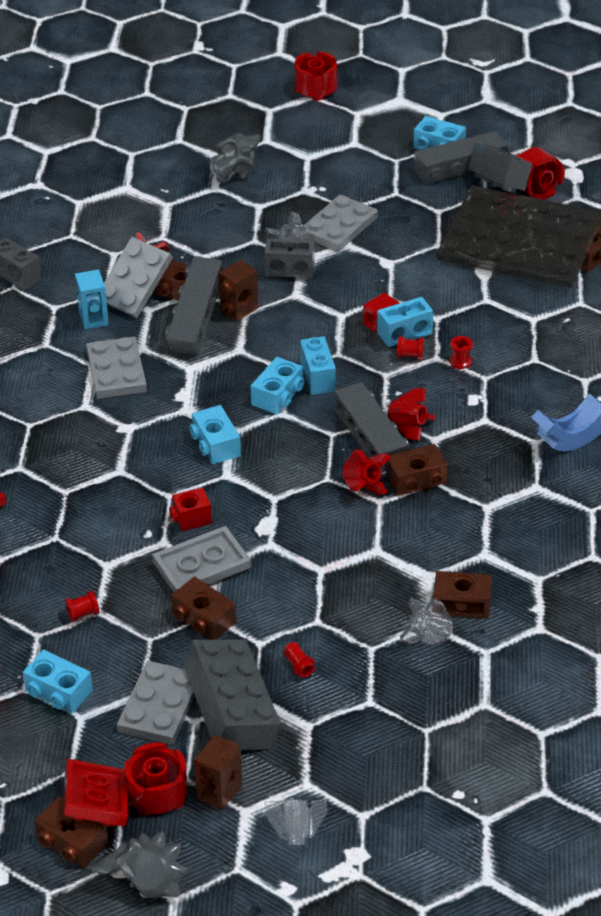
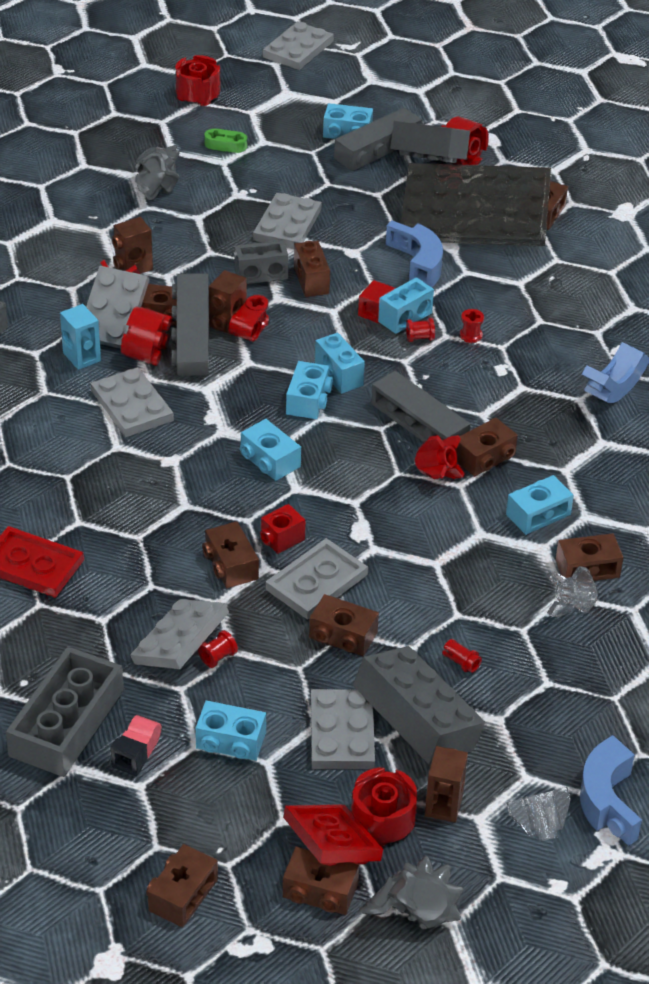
camera: 20 degrees left, 0 degrees up
(53, 585) = (179, 633): none -> light grey plate
(134, 524) = (231, 555): none -> copper brick
(150, 308) = (146, 335): none -> red brick
(177, 224) = (133, 245): none -> copper brick
(257, 309) = (250, 318): none -> red piece
(292, 230) = (245, 235): clear brick -> none
(318, 137) = (225, 140): none -> bright green beam
(335, 271) = (311, 268): none -> copper brick
(368, 798) = (604, 768): none -> medium blue arch
(410, 413) = (454, 392): red brick -> none
(431, 55) = (298, 45): none -> light grey plate
(440, 534) = (539, 504): none -> medium azure brick
(450, 284) = (422, 245): none -> medium blue arch

